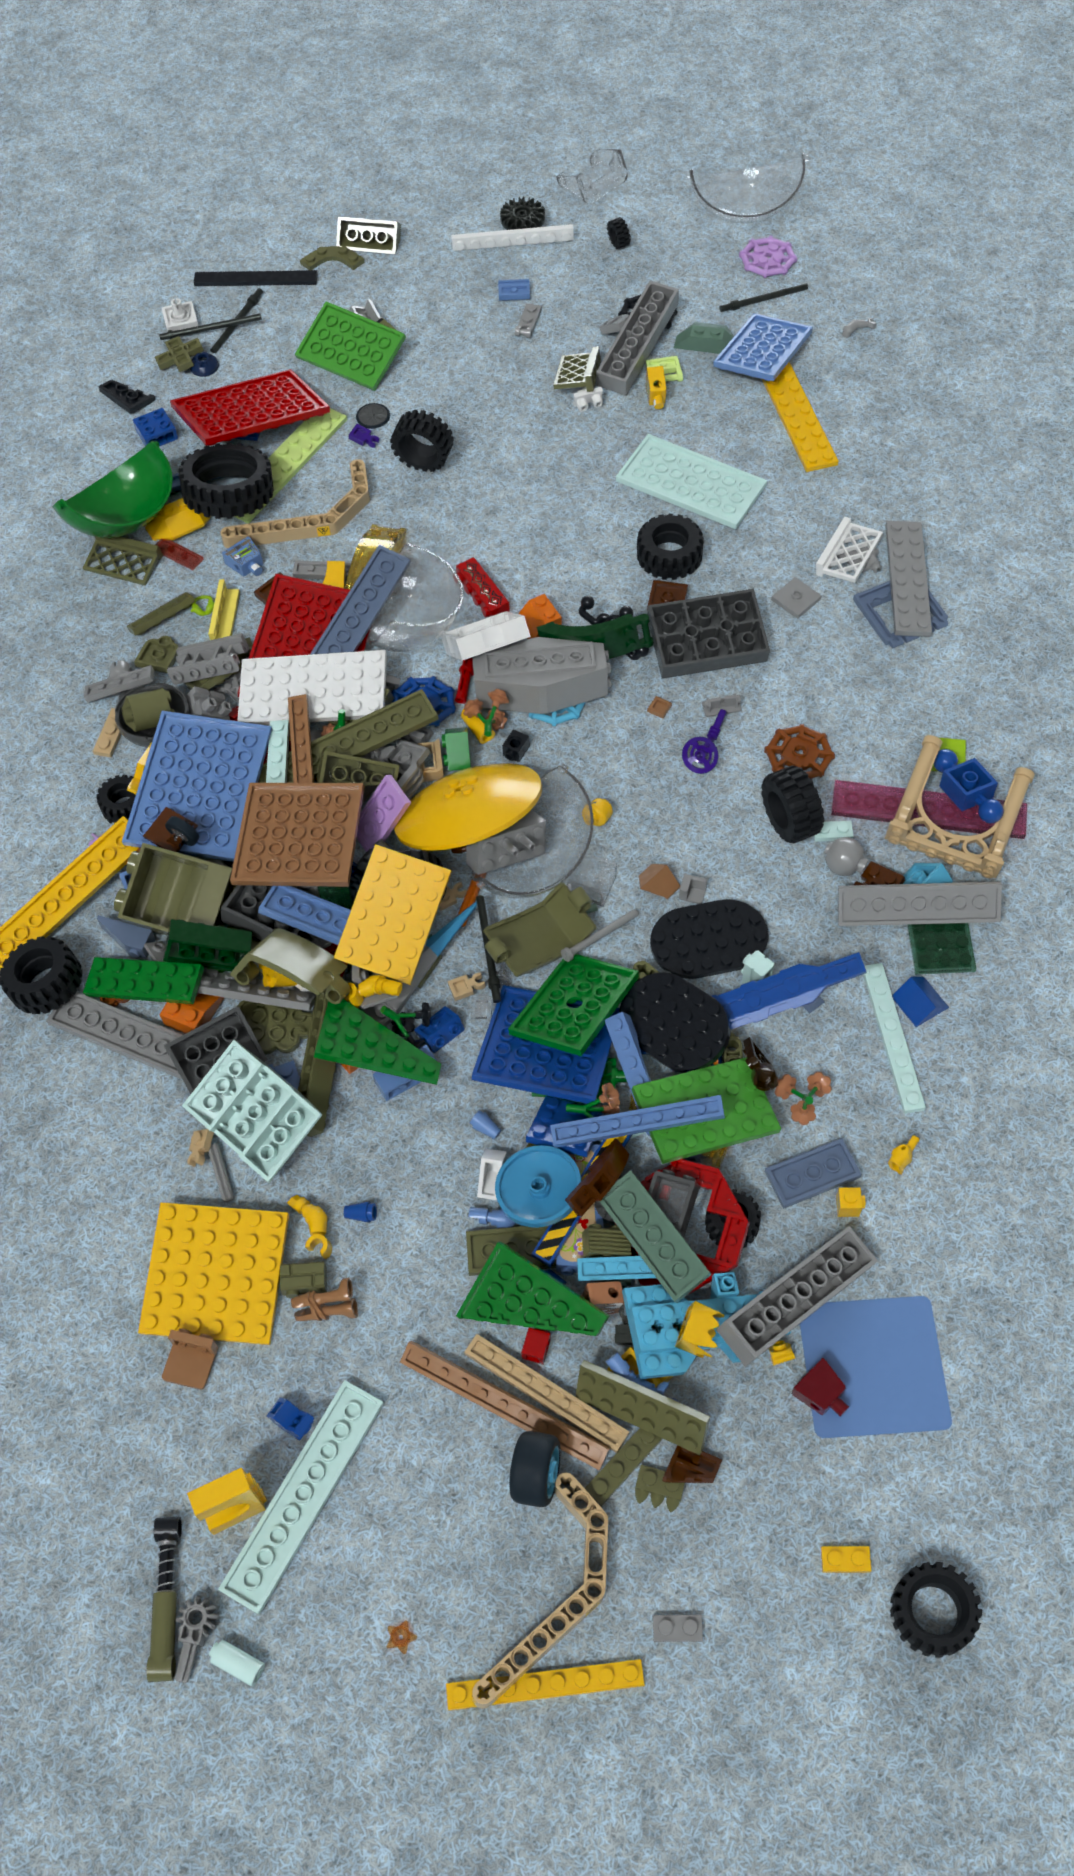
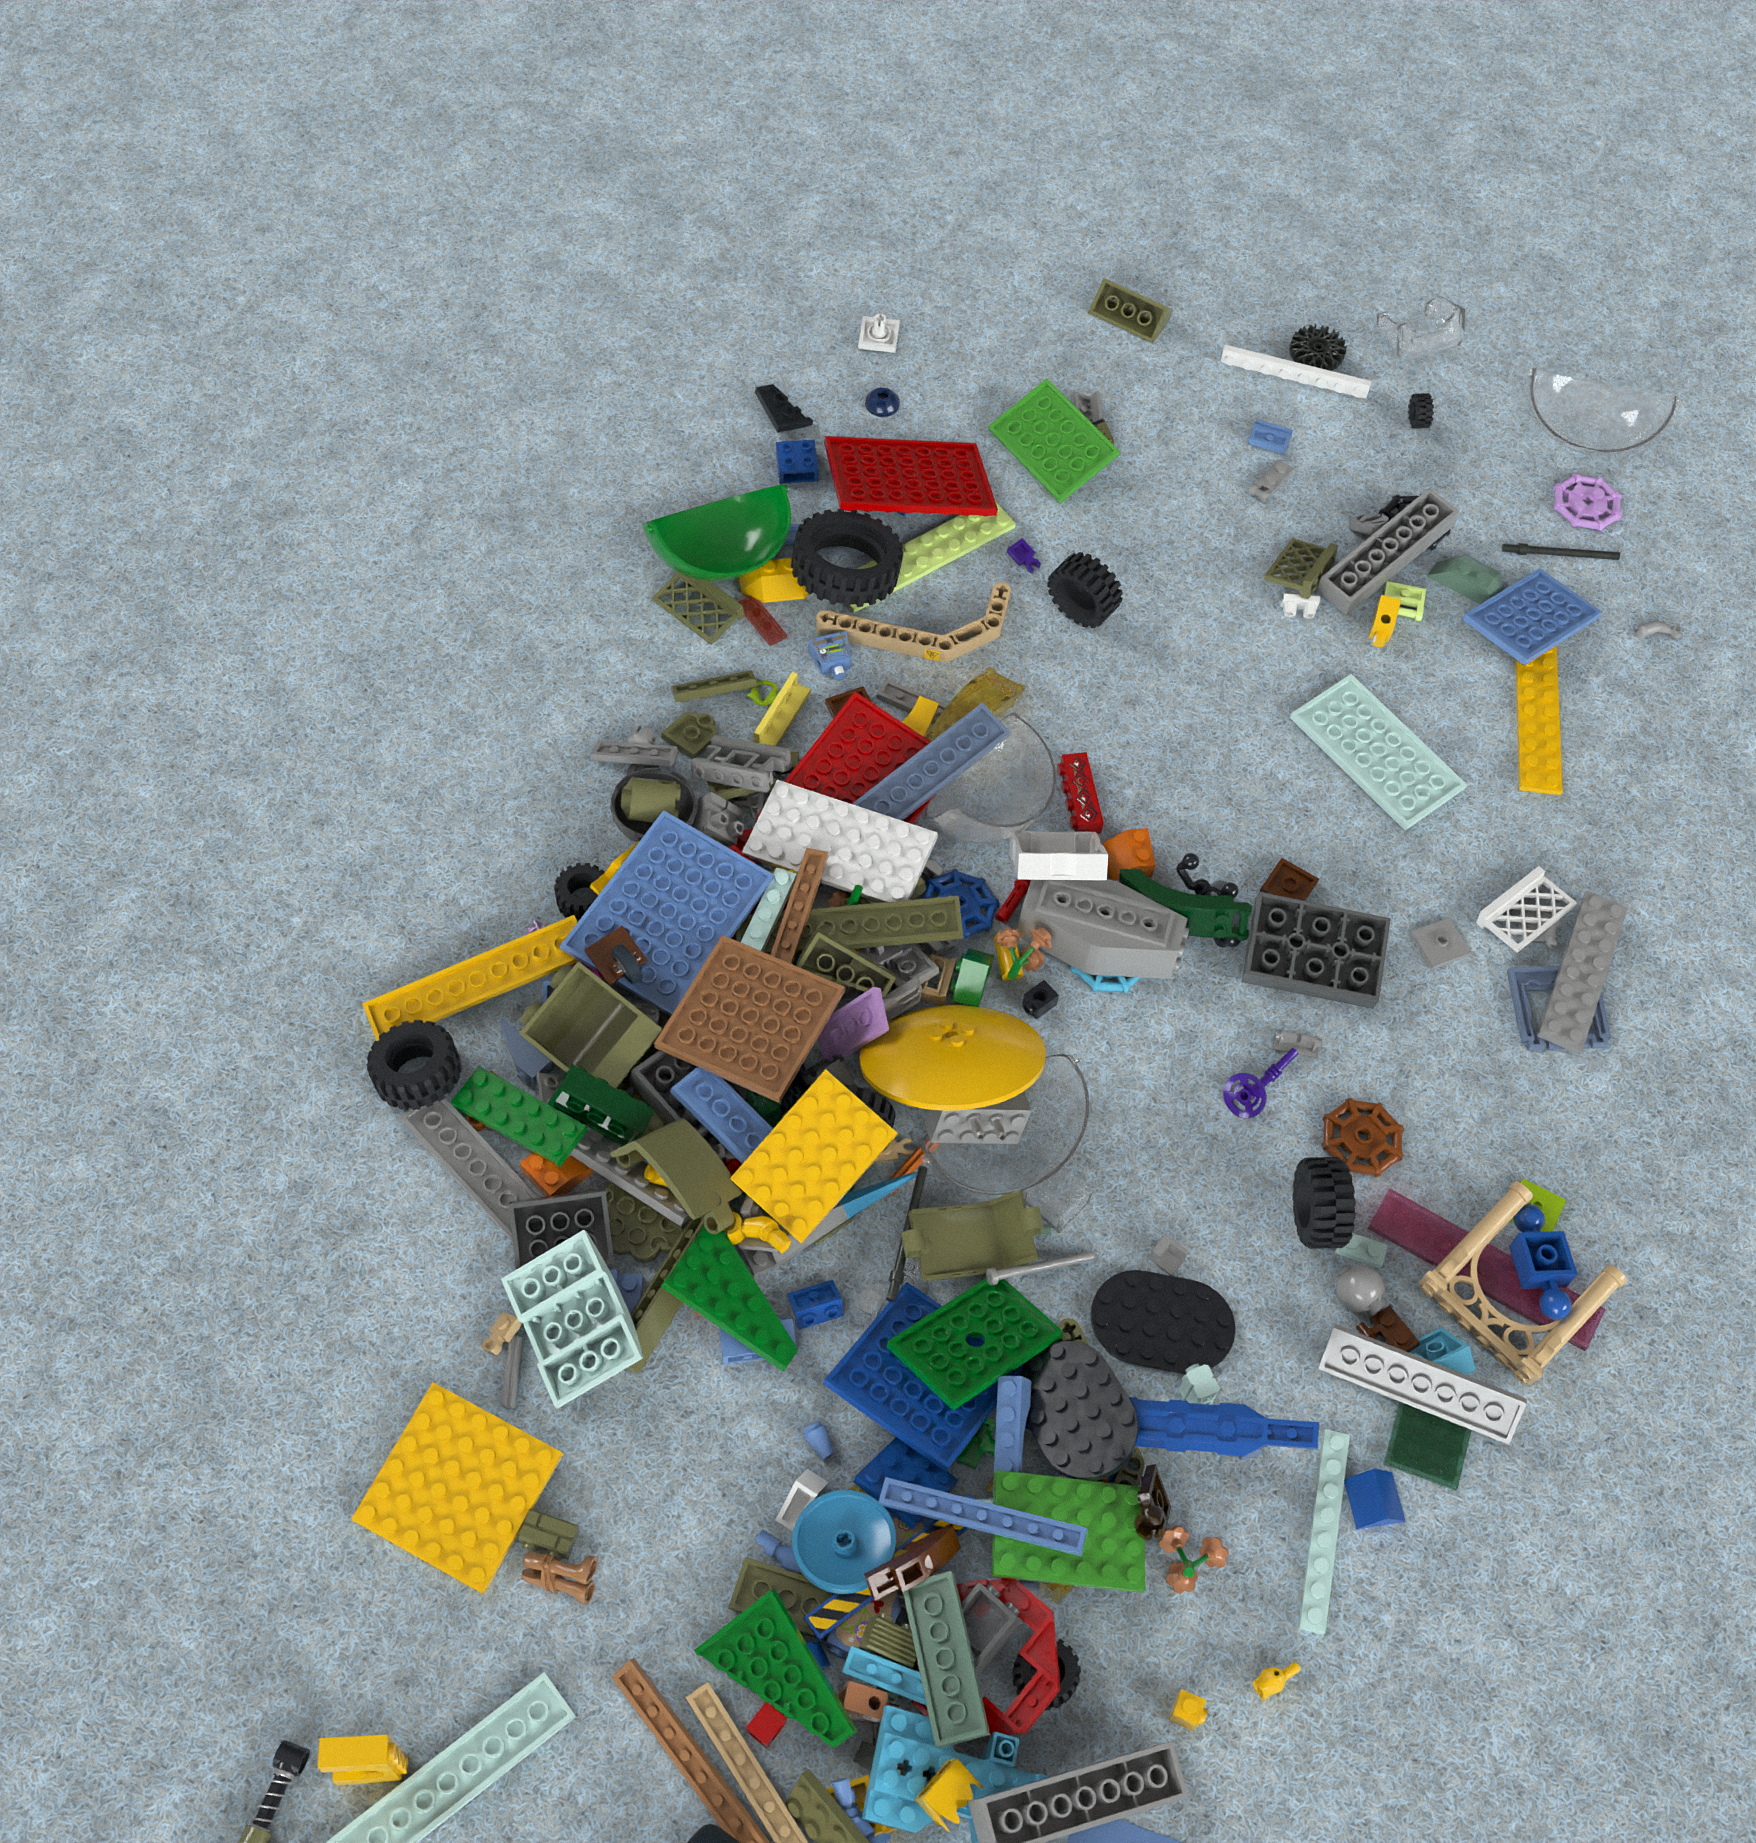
camera: 15 degrees right, 0 degrees up
(108, 737) = (597, 811): tan plate -> none
(179, 354) = (859, 380): olive plate -> none
(189, 1359) = (391, 1574): medium nougat bracket -> none
(207, 327) = (861, 352): pearl dark grey bar -> none
(251, 301) = (967, 343): pearl dark grey bar -> none
(255, 278) = (982, 317): black tile -> none
(290, 1418) = (469, 1690): blue brick -> none
(317, 1223) = (590, 1475): yellow piece -> none
(331, 253) = (1079, 316): olive plate -> none
(361, 1212) = (642, 1483): blue cone -> none
(373, 415) = (1045, 533): dark grey wheel -> none
(403, 1022) = (779, 1282): black plant -> none
(463, 987) = (861, 1265): tan plate -> none
(601, 811) = (1101, 1117): yellow head -> none
(609, 1095) = (963, 1474): plant -> none
(658, 880) = (1133, 1228): medium nougat slope -> none
(659, 707) = (1224, 1016): medium nougat tile -> none
(670, 530) = (1311, 846): black tyre -> none
(812, 1173) = (1161, 1656): sand blue plate -> none

